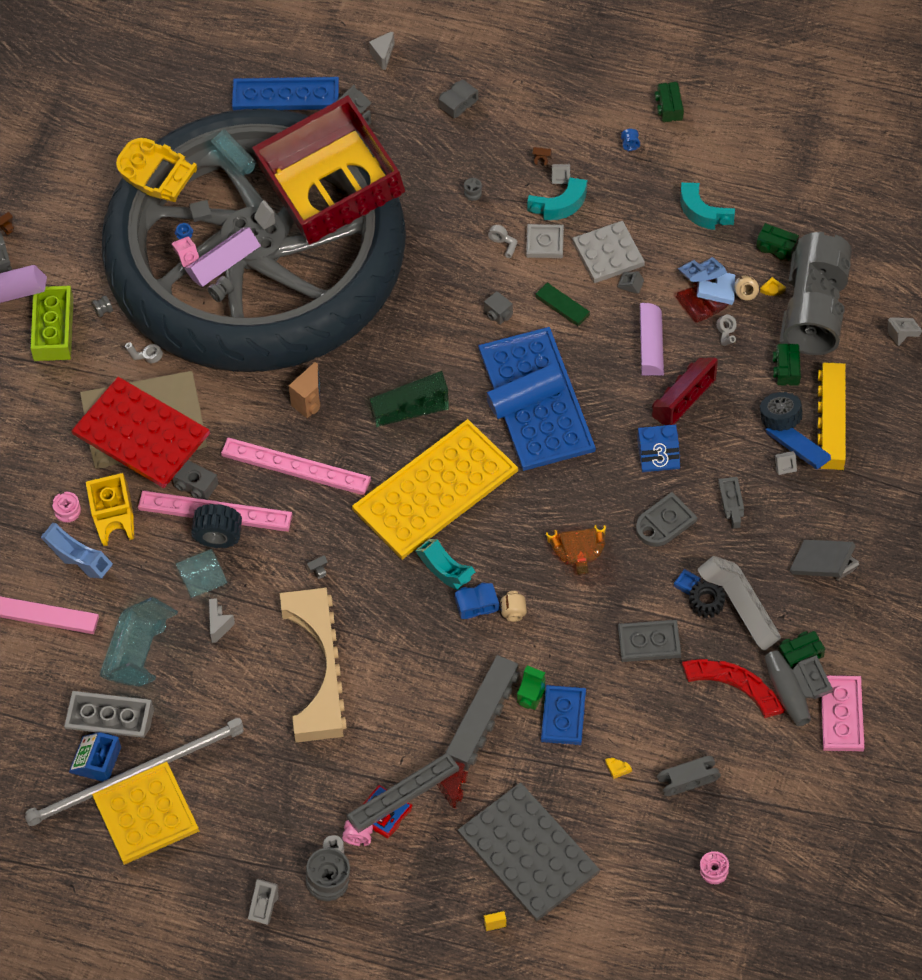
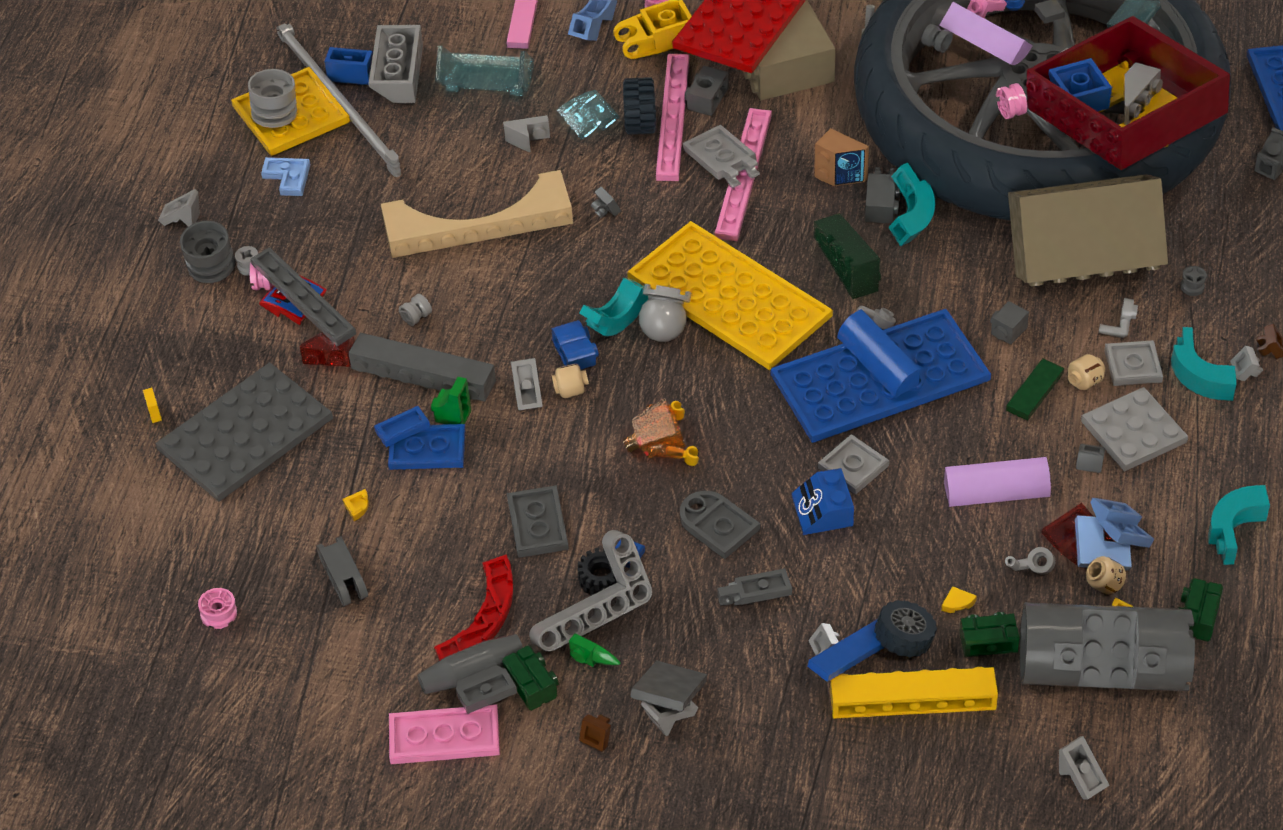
camera: 85 degrees right, 10 degrees down
(149, 814) = (272, 98): none -> light grey wheel
(222, 813) = (290, 170): none -> light blue tile
(277, 476) = (722, 155): none -> light grey tile
(310, 249) = (1011, 101): none -> bright pink wheel
(316, 194) = (1084, 82): none -> blue slope
(322, 165) = (1140, 85): none -> light grey slope
(345, 371) = (881, 197): none -> dark grey hinge
(373, 346) = (919, 205): none -> teal arch
(417, 716) = (414, 310): none -> light grey wheel
(434, 234) = (1088, 229): none -> dark tan brick
(459, 528) = (663, 313): none -> light grey tile
(479, 389) = (882, 317): none -> light grey plate
(515, 636) = (526, 384): none -> light grey slope
(546, 728) = (402, 426): none -> blue tile
(553, 268) = (1086, 371): none -> tan head
(618, 427) = (858, 463): none -> light grey tile
(685, 391) = (915, 522): dark red slope -> none
(752, 380) = (958, 600): none -> yellow tile
(781, 612) = (589, 652): none -> green plate
(851, 611) = (595, 731): none -> reddish brown tile

